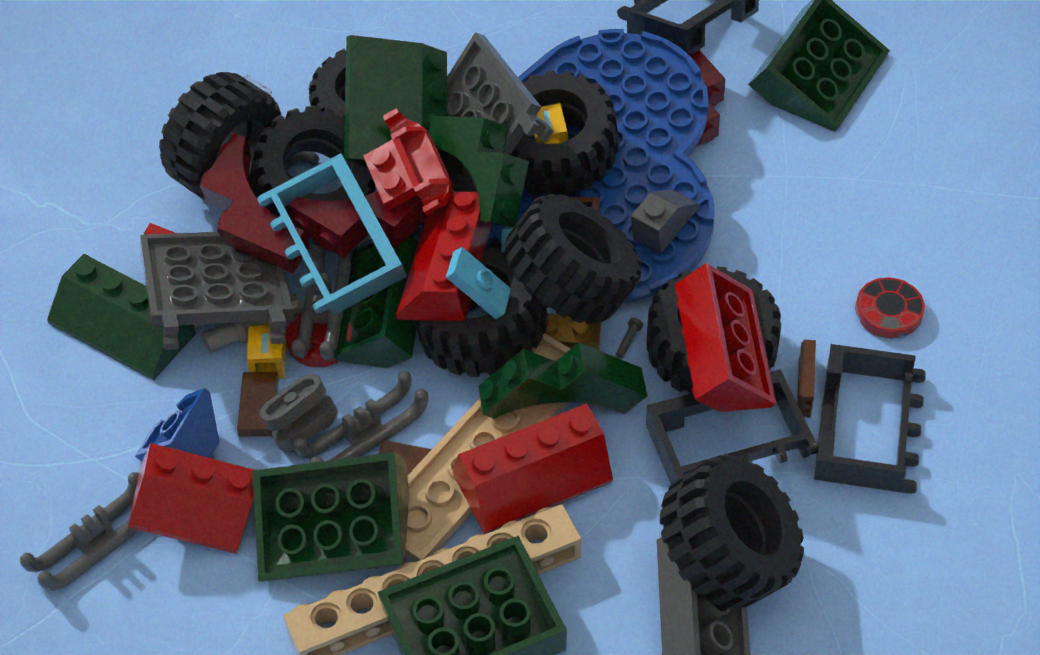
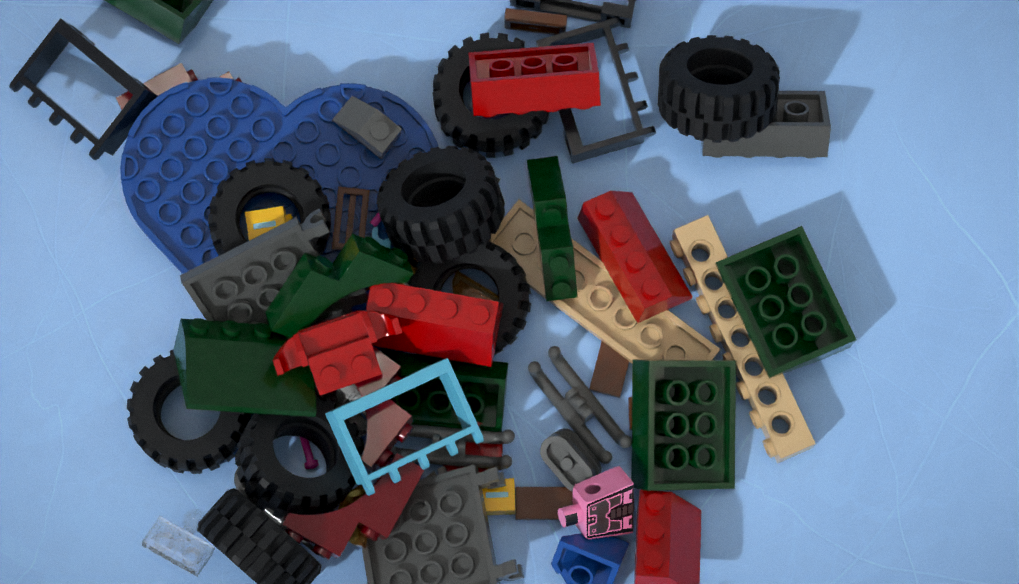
camera: 90 degrees left, 25 degrees up
(242, 429) = (601, 505): none -> bright pink torso
(478, 282) = (482, 284): medium azure plate -> none

